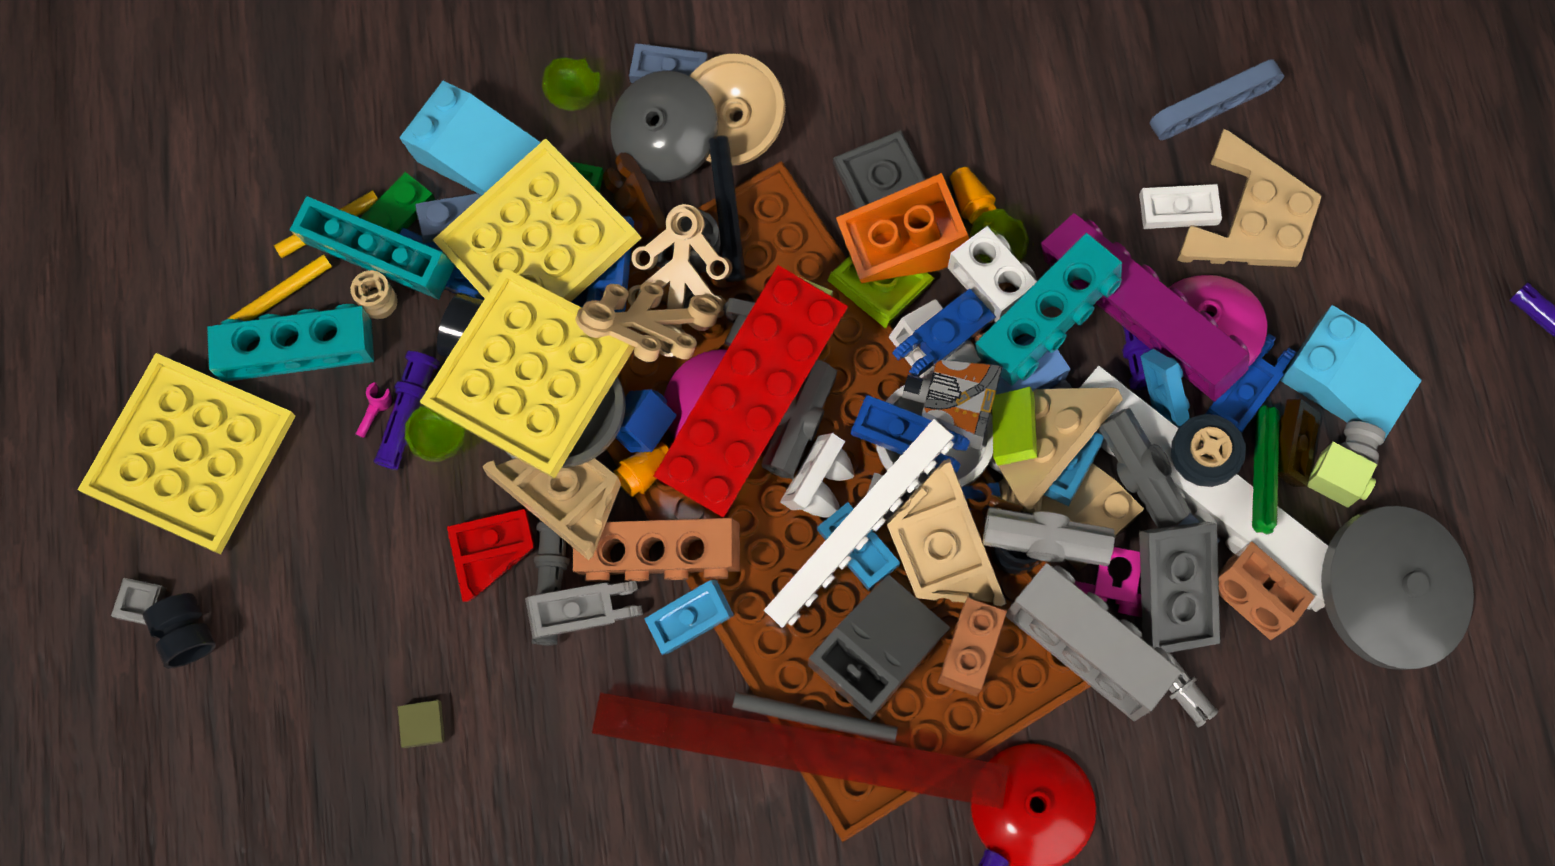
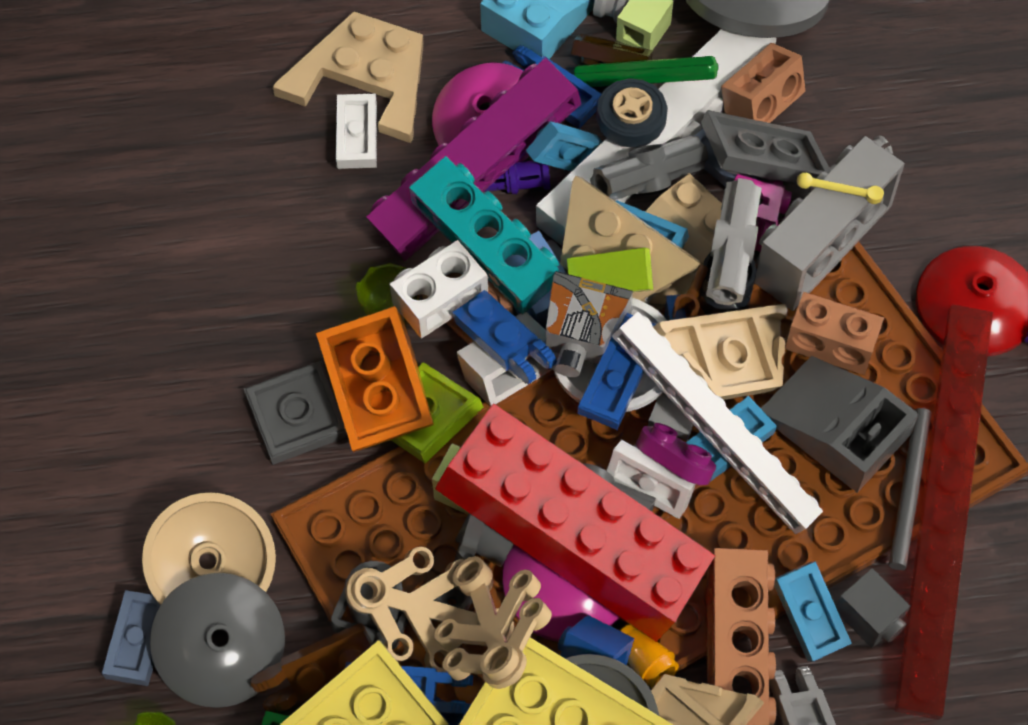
camera: 90 degrees left, 10 degrees down
(693, 676) = (873, 609): none -> dark grey brick
(727, 206) = (319, 565): black axle -> none
(833, 488) = (684, 460): none -> magenta plate
(971, 194) = (328, 315): light orange cone -> none
(1108, 675) = (873, 194): none -> light yellow hinge
(1216, 99) = (240, 90): sand blue beam -> none

